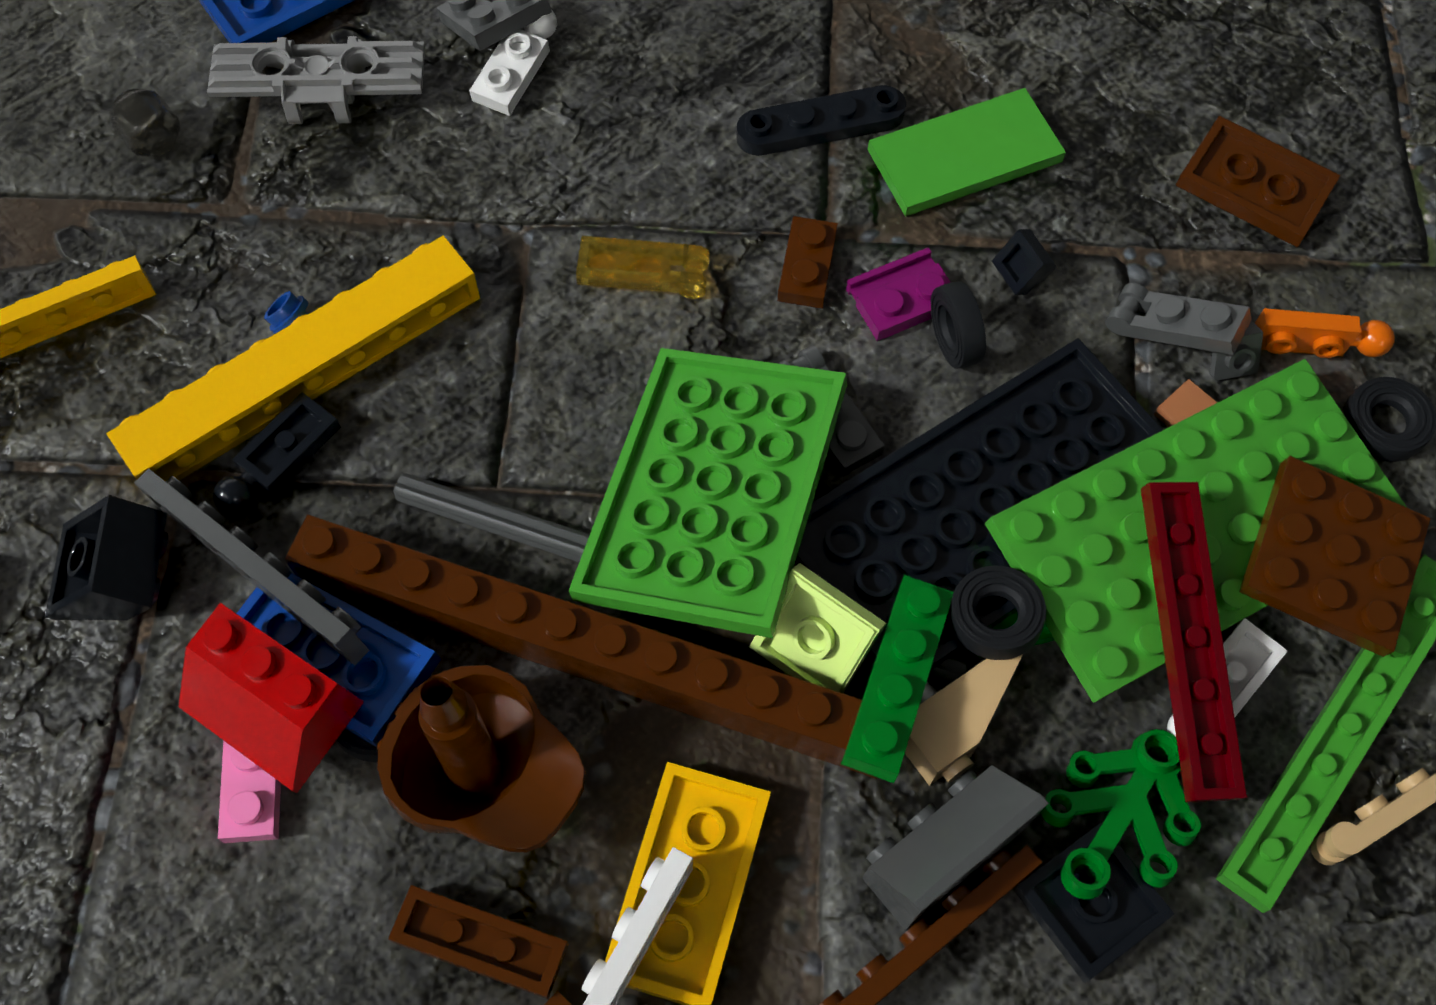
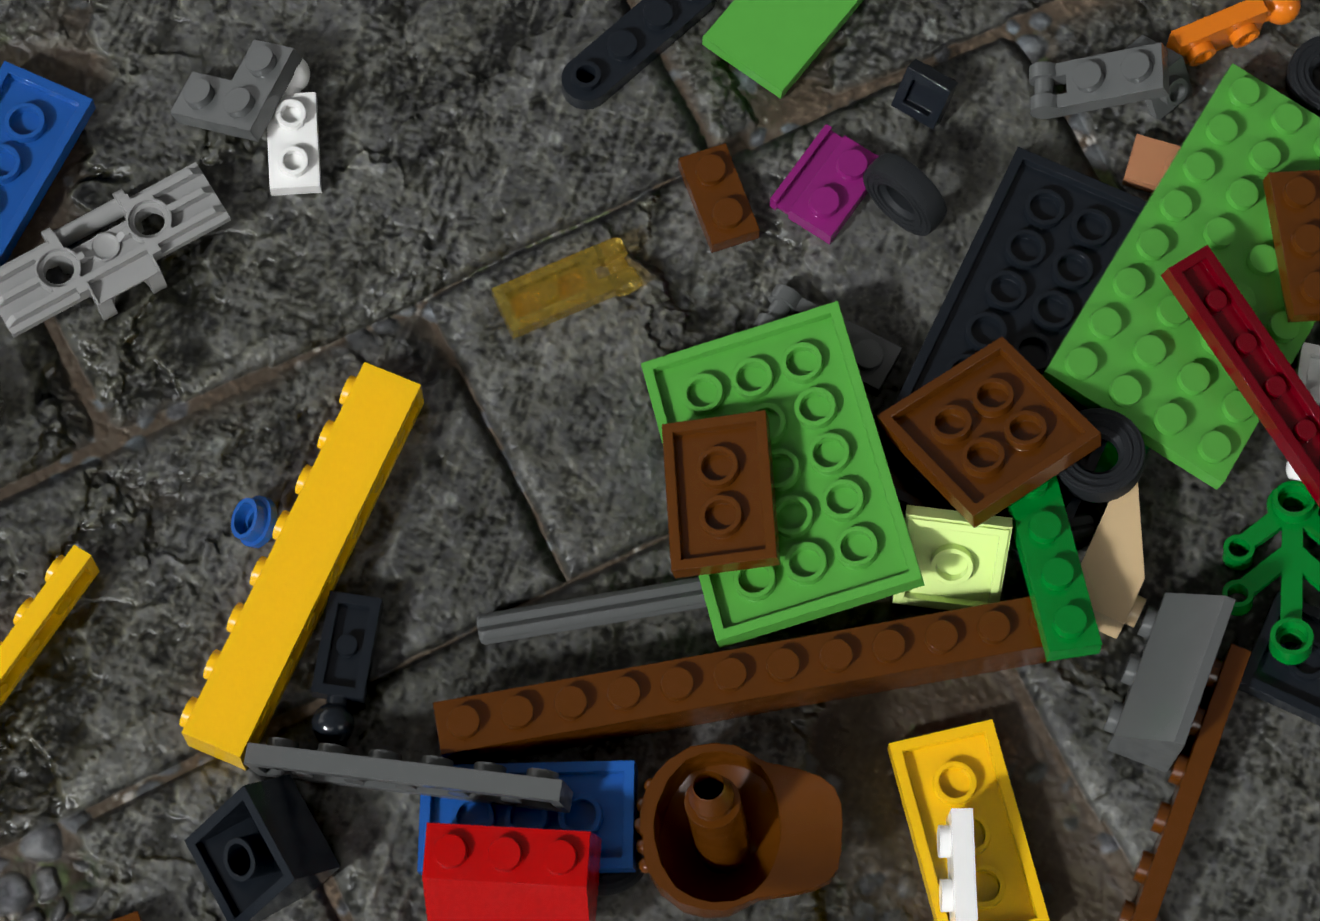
camera: 30 degrees left, 5 degrees up
(647, 473) = (720, 494): none -> reddish brown plate
(909, 540) = (988, 431): none -> reddish brown plate

